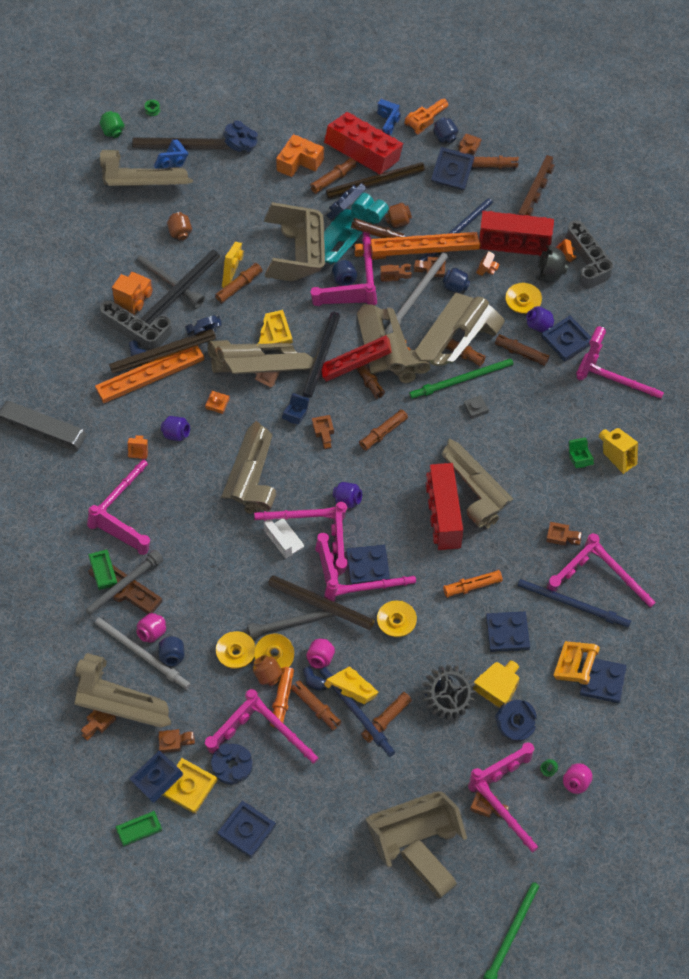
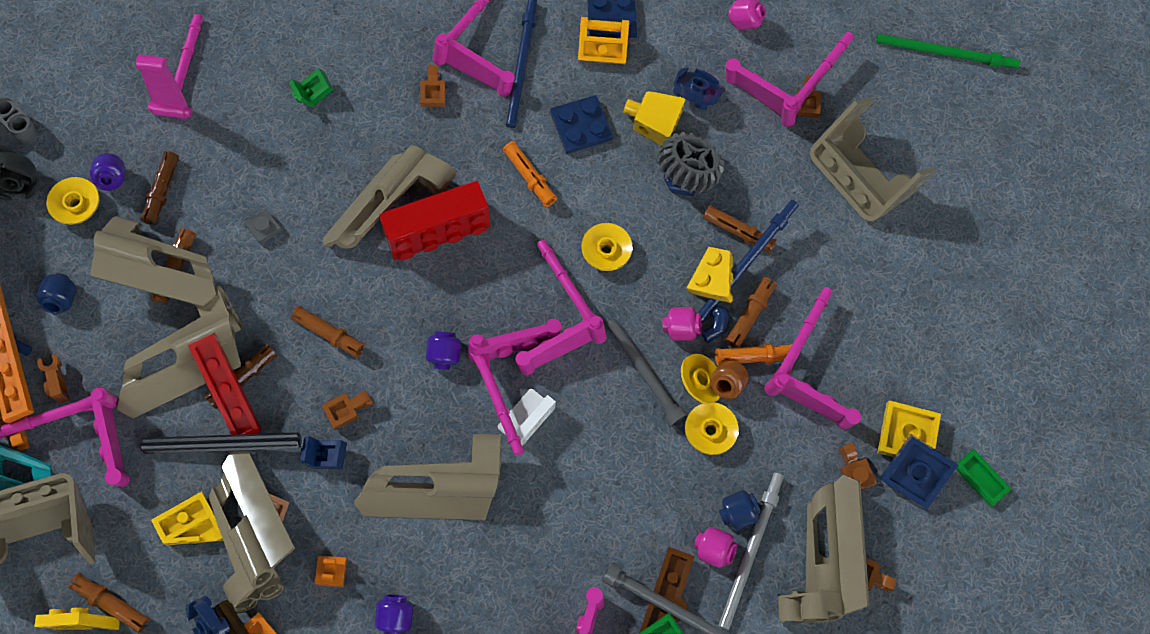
camera: 110 degrees left, 10 degrees up
(237, 773) = (870, 381): dark blue plate -> none
(246, 829) = (936, 349): dark blue plate -> none
(321, 602) = (612, 342): dark brown axle -> none
(344, 273) = (67, 449): dark blue head -> none
(367, 564) = (537, 300): dark blue plate -> none
(404, 309) = (83, 338): light grey bar -> none
(421, 266) = (34, 329): dark orange plate -> none
(428, 389) = (247, 289): green bar -> none
(428, 867) = (904, 142): dark tan beam -> none
(487, 264) = (19, 260): orange tile -> none
(546, 764) = (740, 47): green hinge -> none
(566, 338) = (130, 136): dark blue plate -> none
(620, 449) = (295, 43): yellow torso -> none

